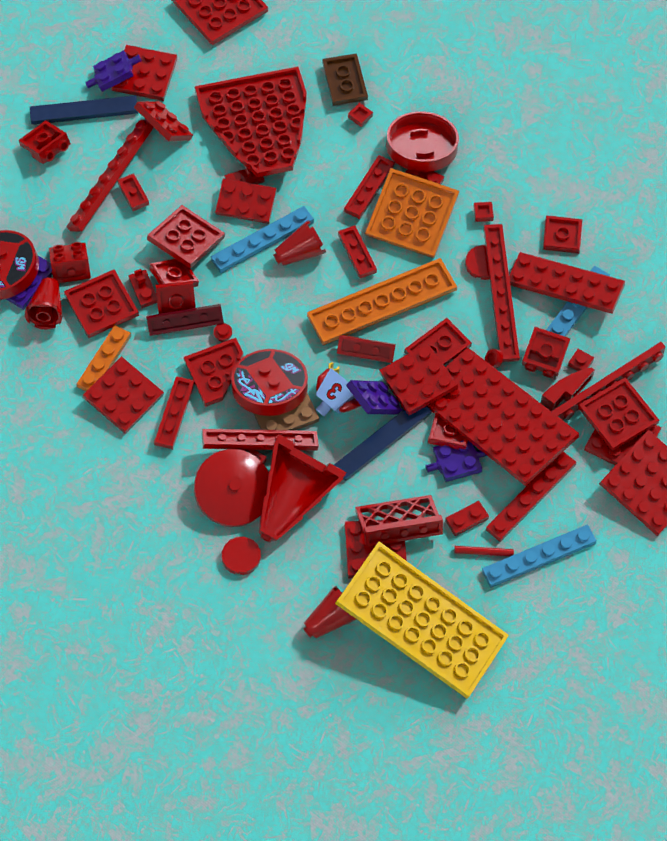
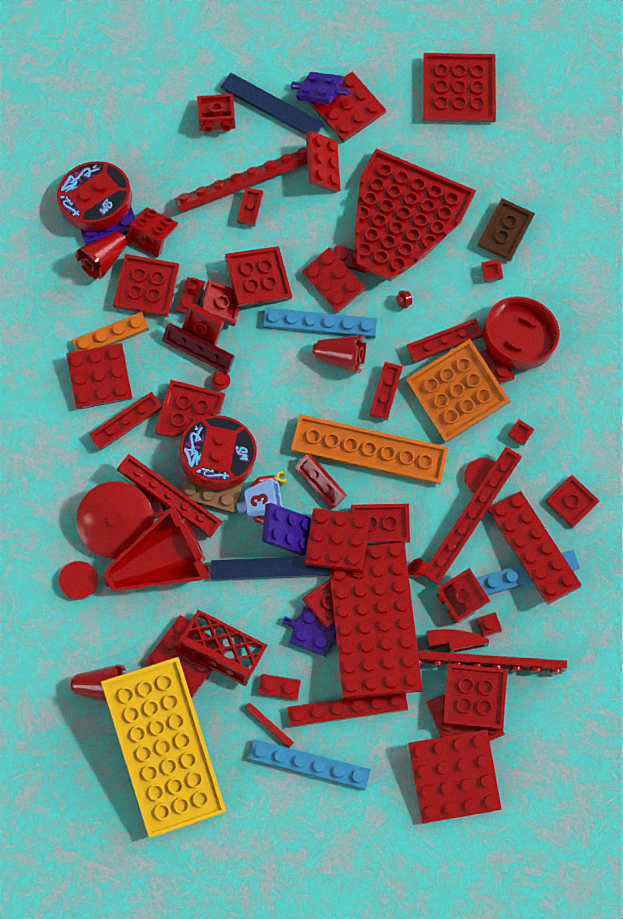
camera: 40 degrees right, 10 degrees up
(312, 178) = (404, 299): none -> red plate

